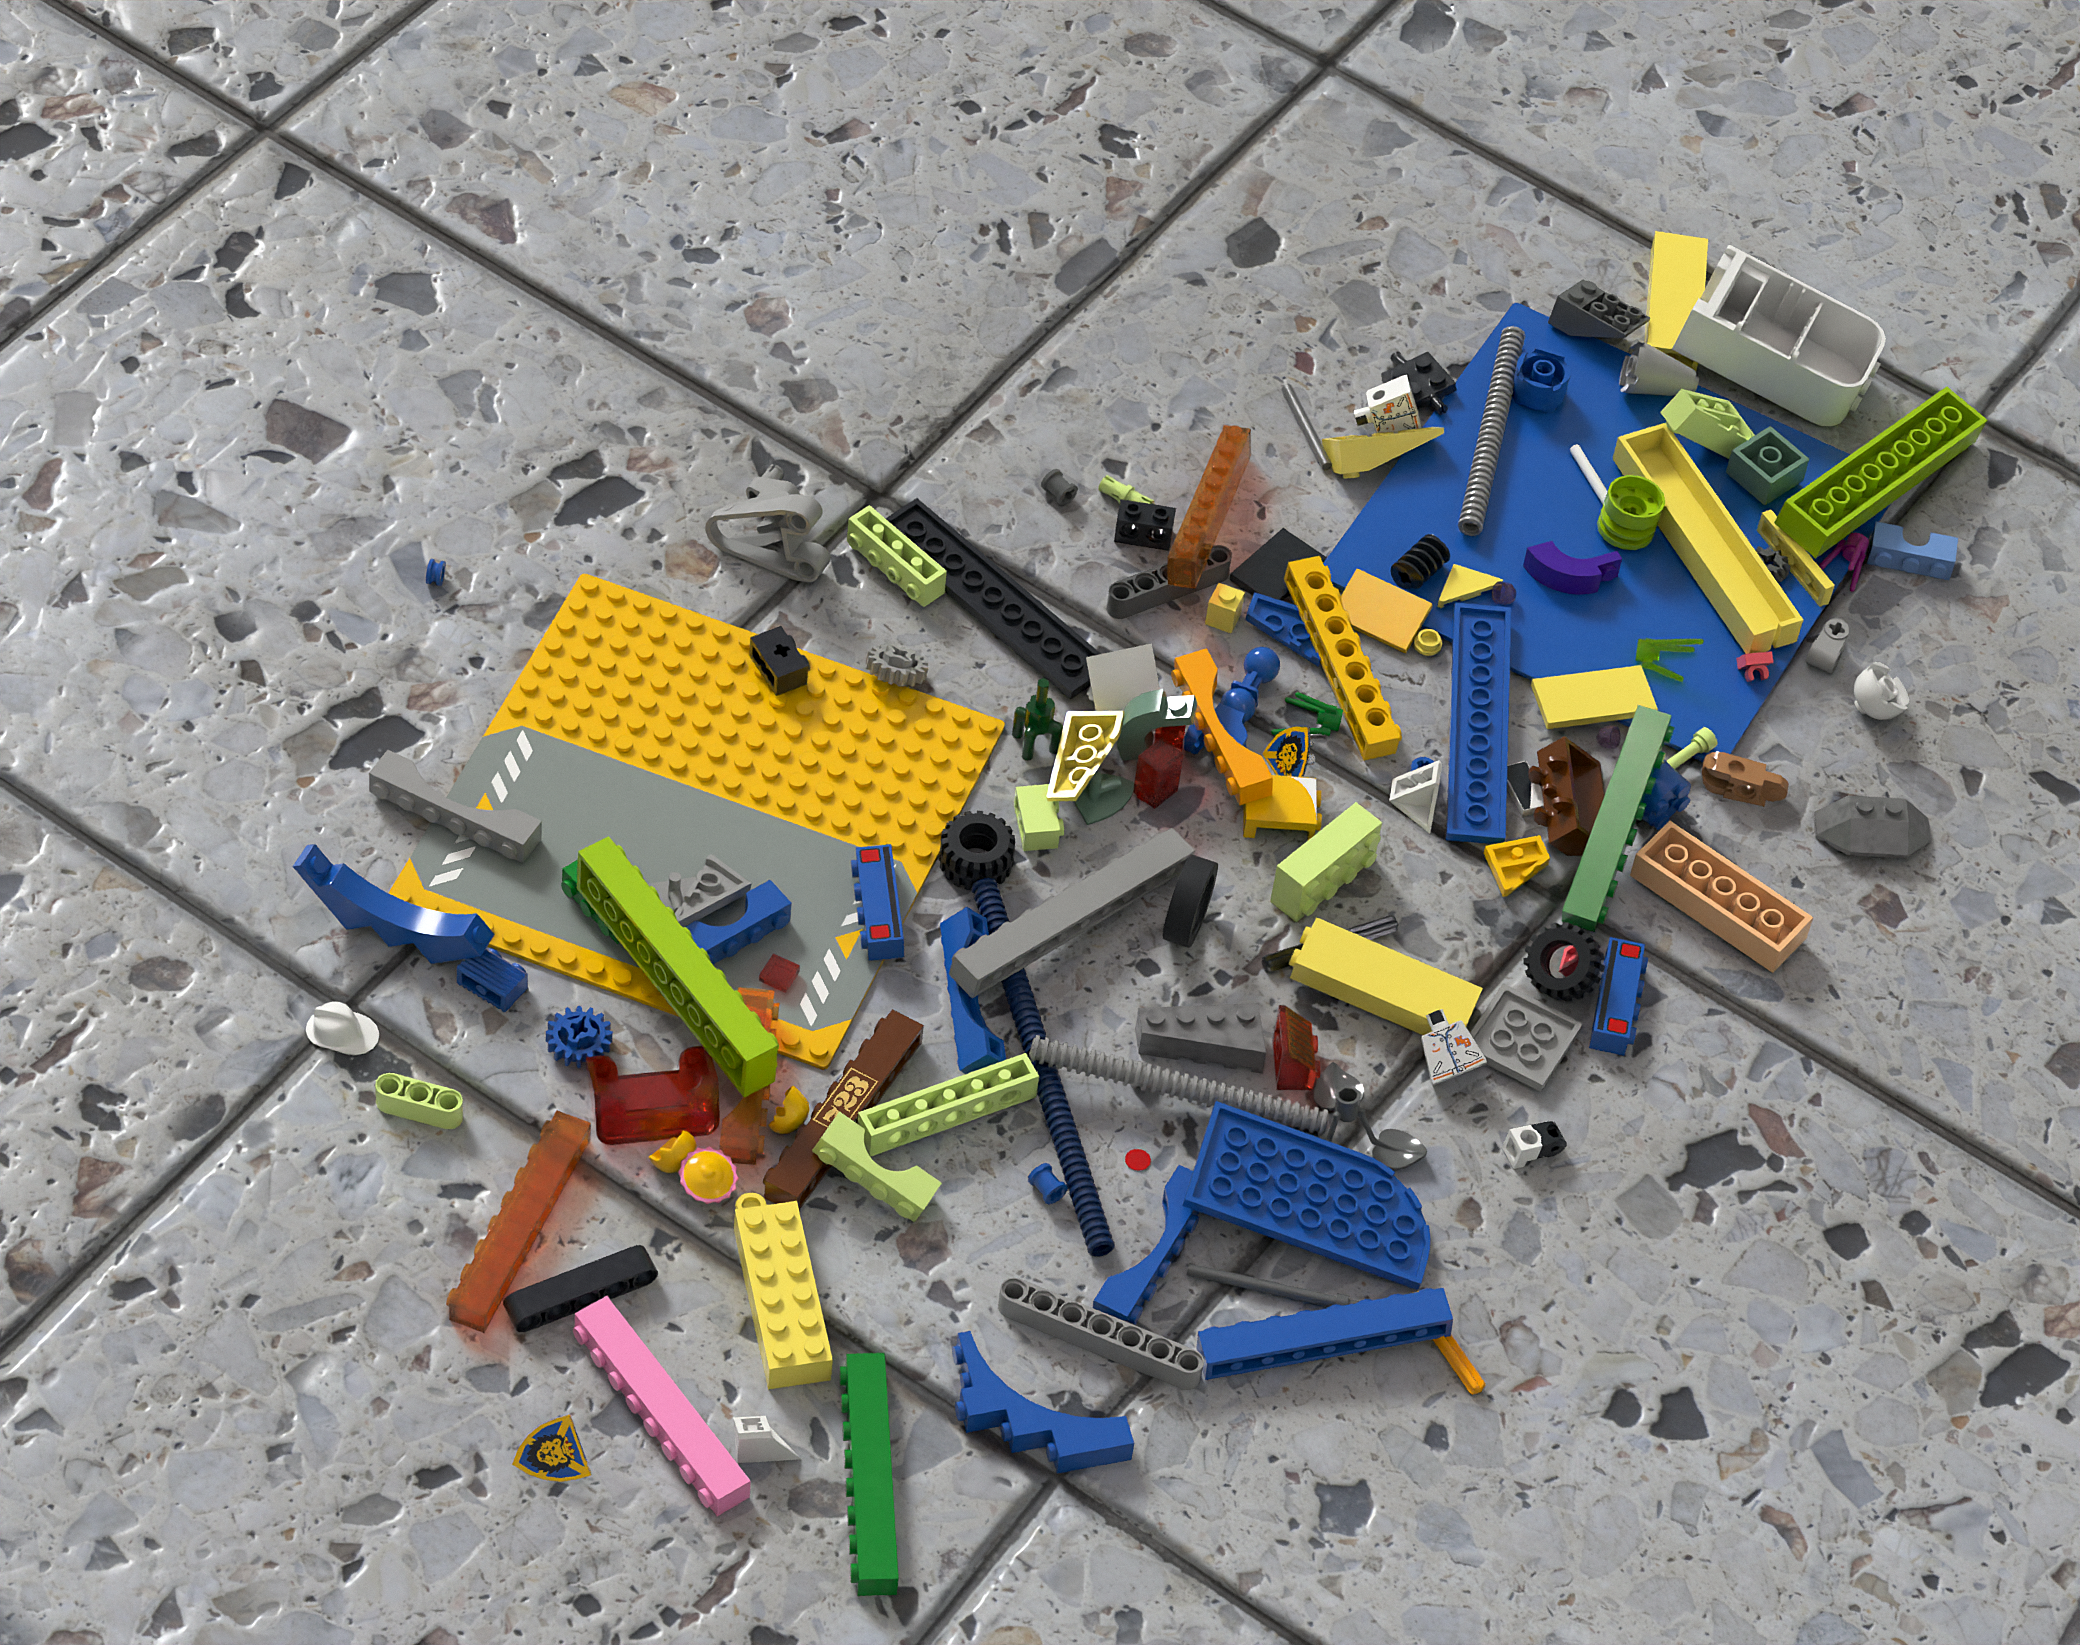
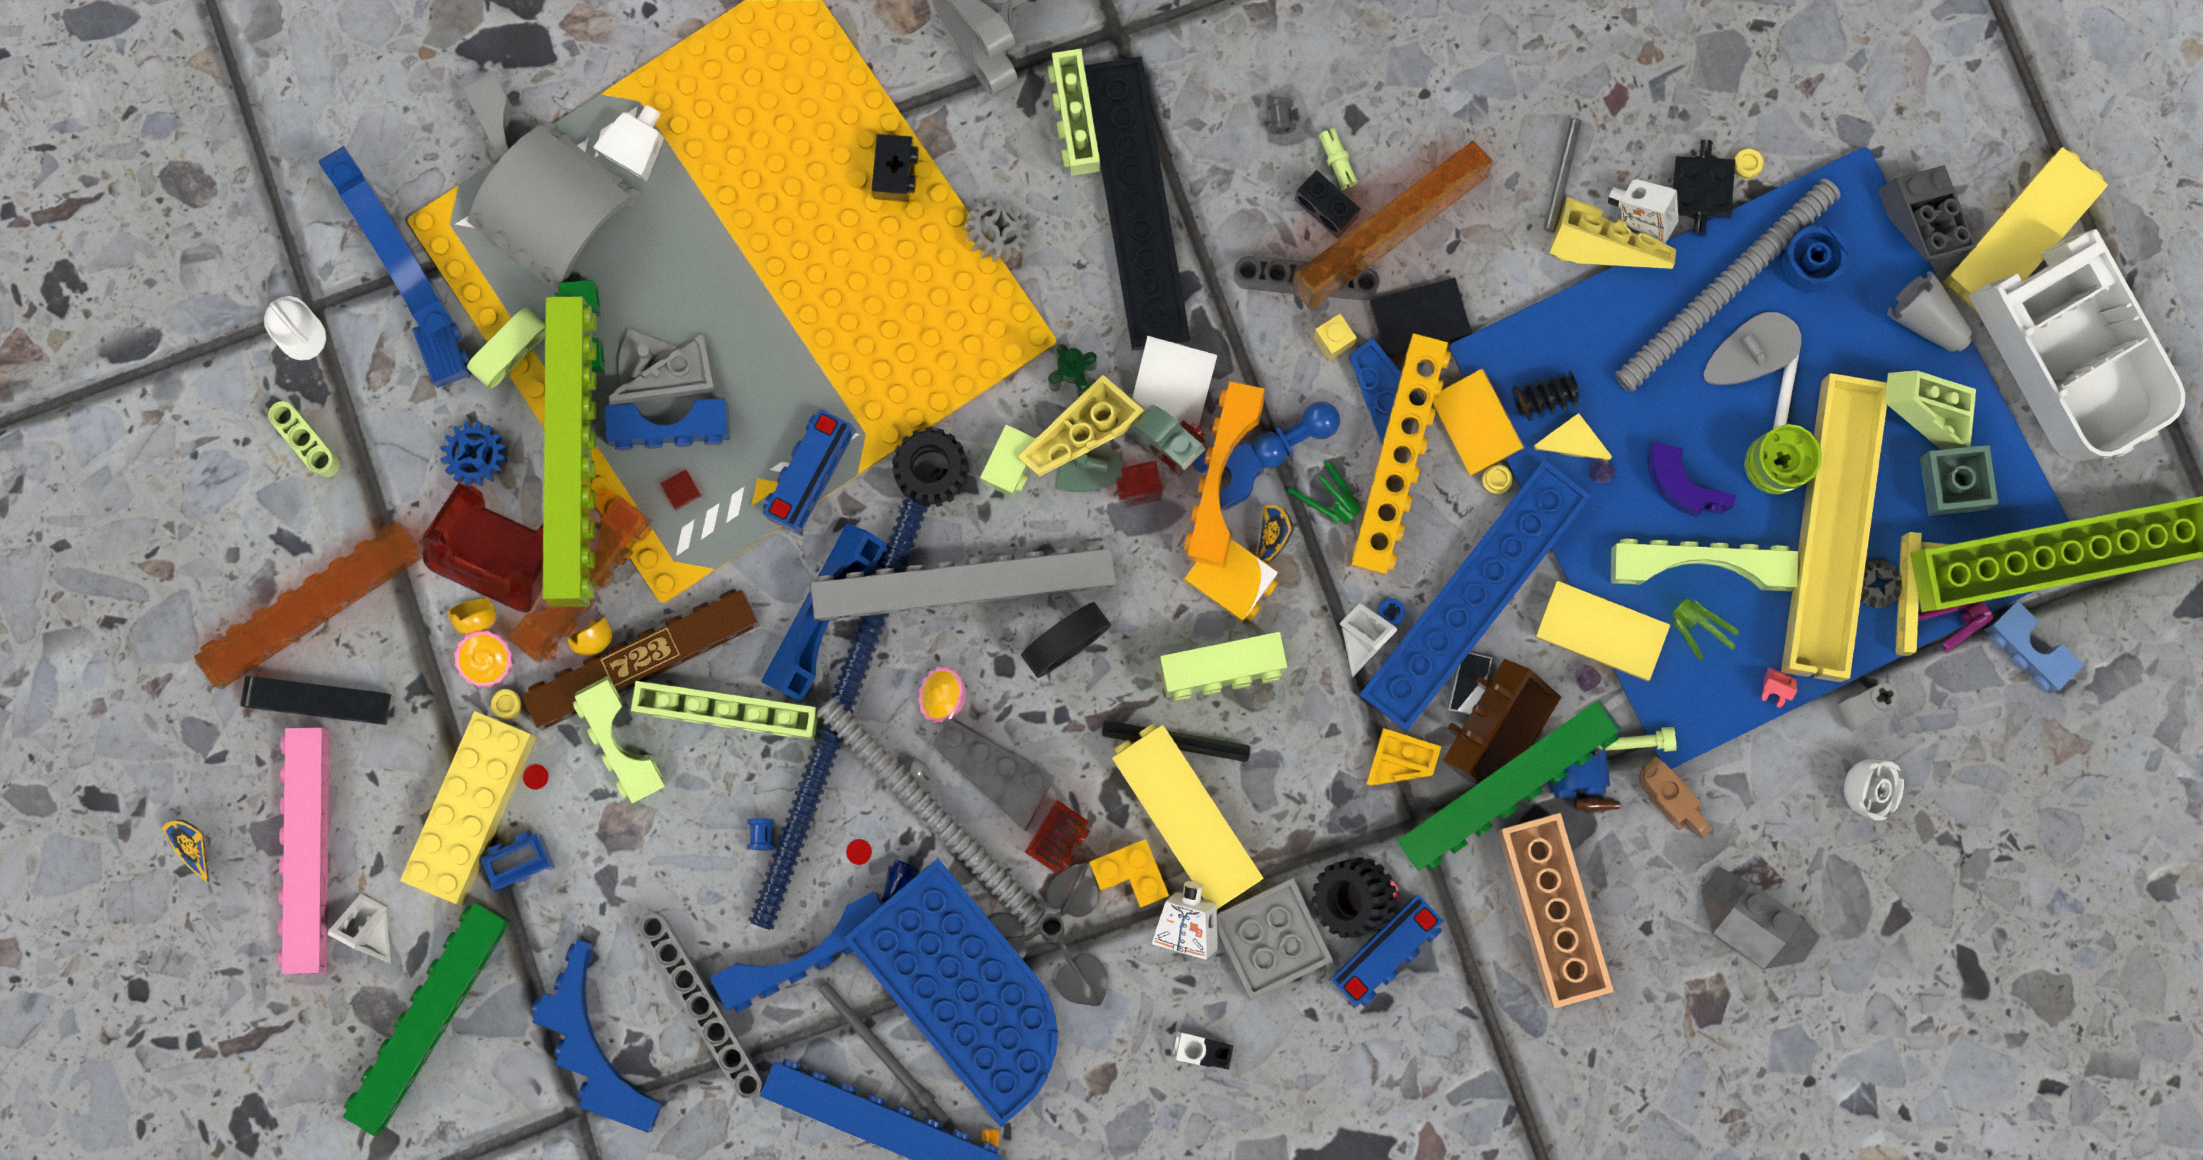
camera: 40 degrees right, 30 degrees up
(507, 826) = (547, 202): none -> light grey hinge
(544, 749) = (632, 142): none -> white torso
(551, 940) = (507, 348): none -> yellowish green beam
(818, 1250) = (535, 777): none -> red sticker
(855, 1313) = (516, 861): none -> blue window
(1117, 1001) = (942, 694): none -> yellow piece
(1187, 1150) = (897, 876): none -> clear blue cone
(1378, 1043) = (1134, 865): none -> yellow brick
(1440, 352) = (1748, 163): none -> light yellow tile
(1547, 462) = (1755, 350): none -> light grey shield
(1677, 593) = (1766, 569): none -> yellowish green arch
(1688, 818) = (1594, 804): none -> reddish brown piece

